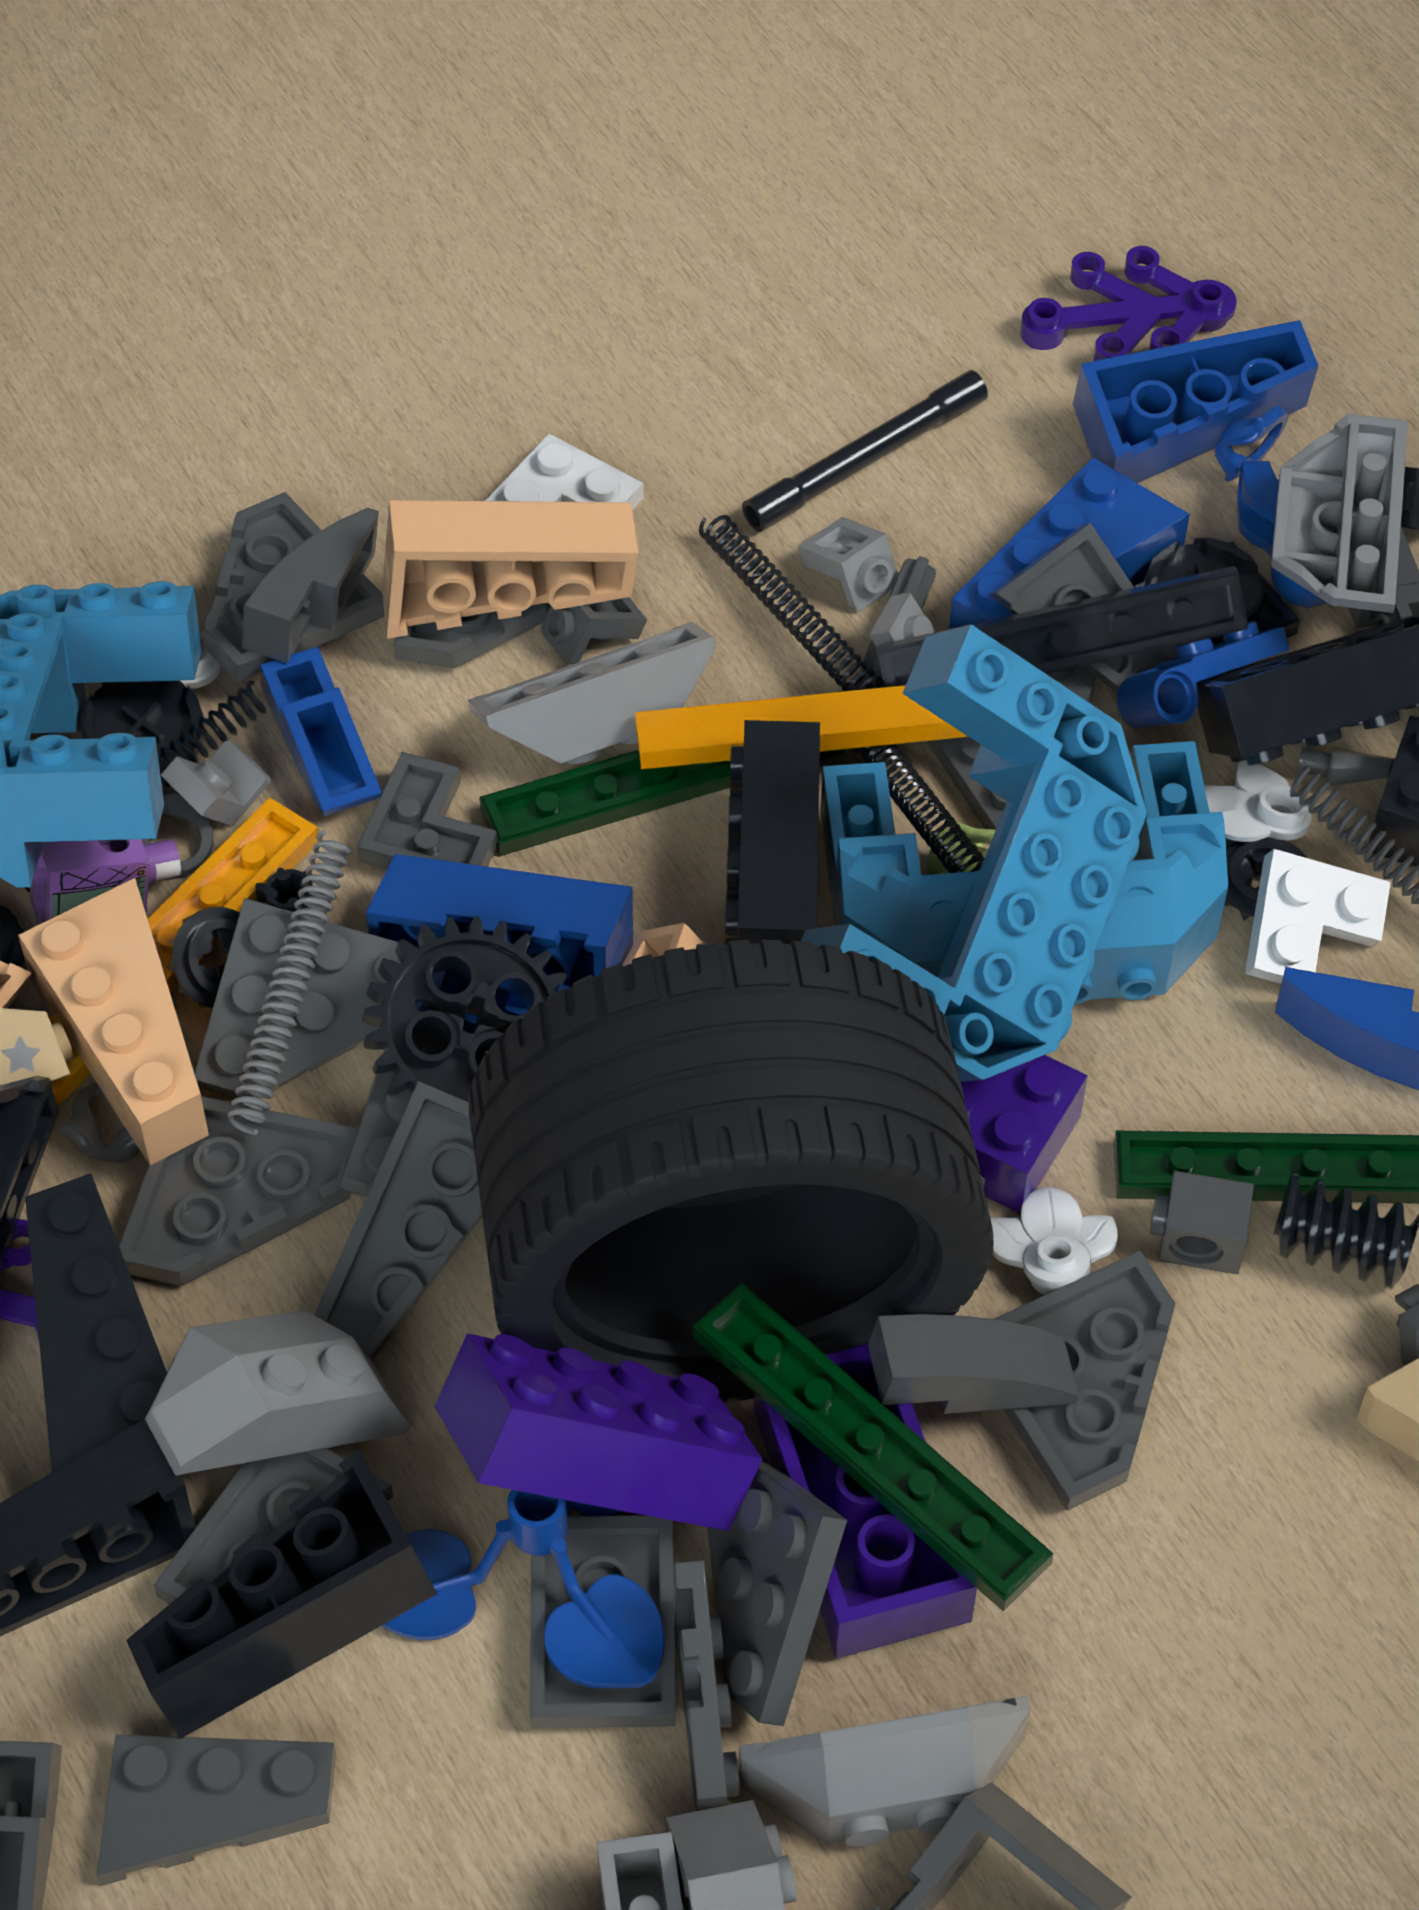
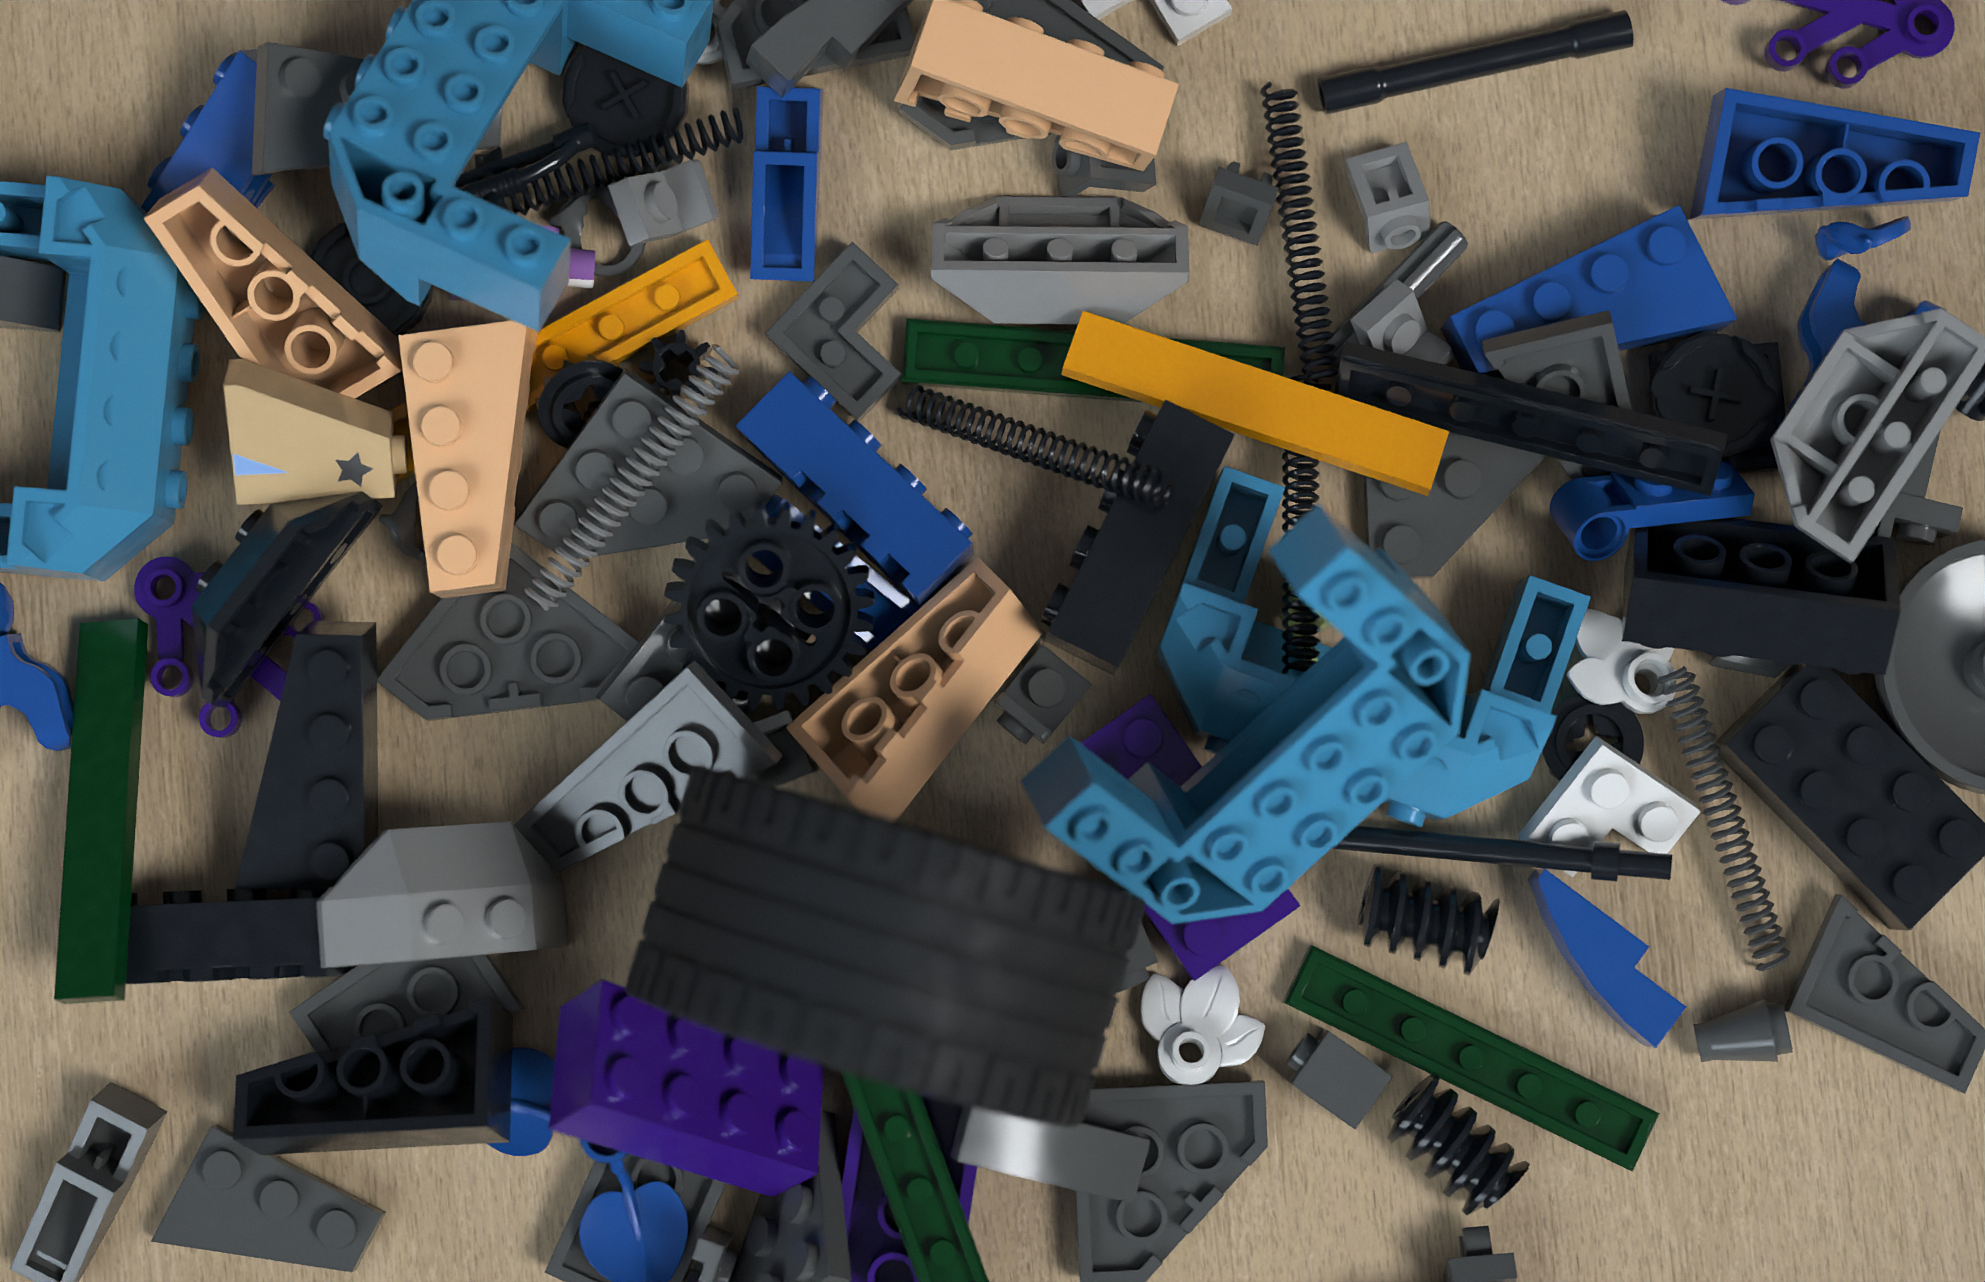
camera: 25 degrees right, 30 degrees up
(644, 812) = (1039, 453): none -> black piece
(727, 606) = (1239, 204): none -> dark grey tile
(1205, 1058) = (1426, 920): none -> black piece
(1329, 939) = (1602, 860): none -> black bar

